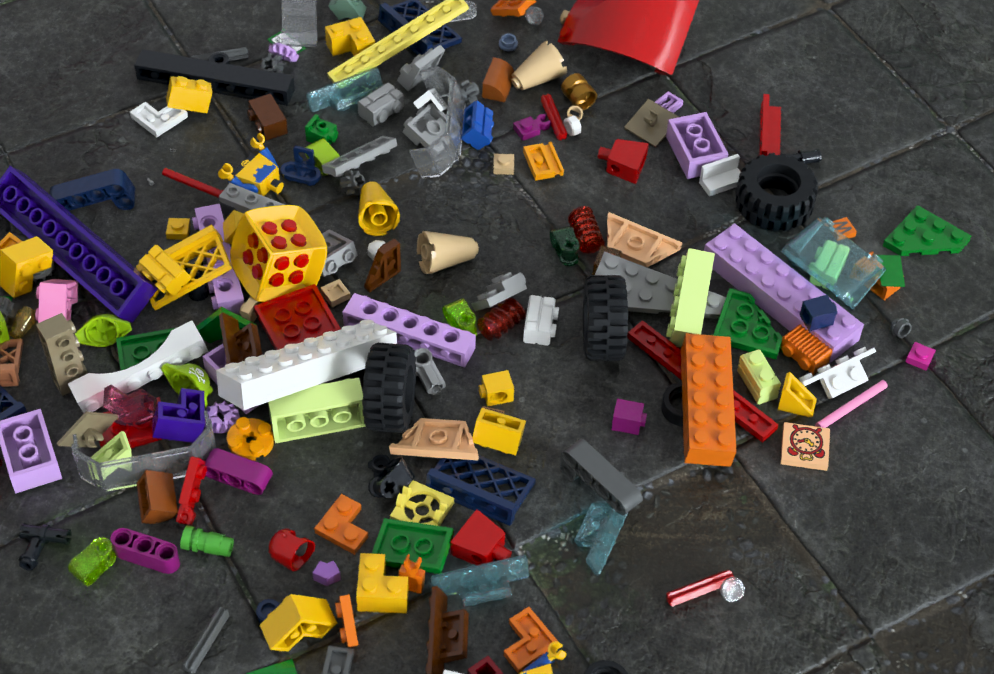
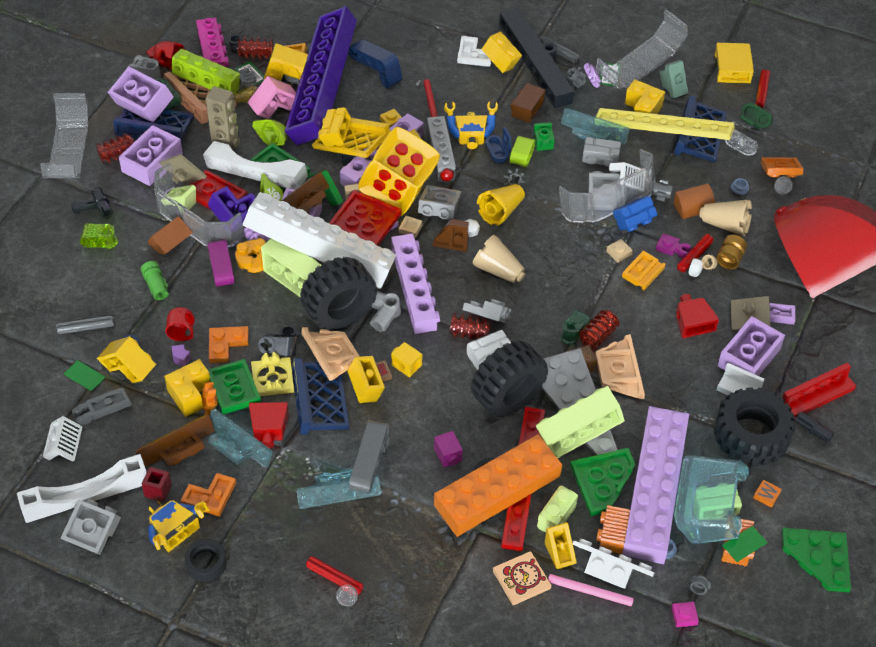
camera: 55 degrees right, 0 degrees up
(132, 408) = (217, 176): clear pink brick -> none
(138, 542) = (125, 255): magenta beam -> none
(190, 491) = (184, 247): red hinge -> none
(344, 611) = (146, 385): orange wing -> none
(359, 155) = (535, 166): light grey plate -> none
(410, 73) = (661, 150): light grey plate -> none
(460, 315) = (450, 303): clear neon green piece -> none
(818, 312) = (640, 510): dark blue brick -> none

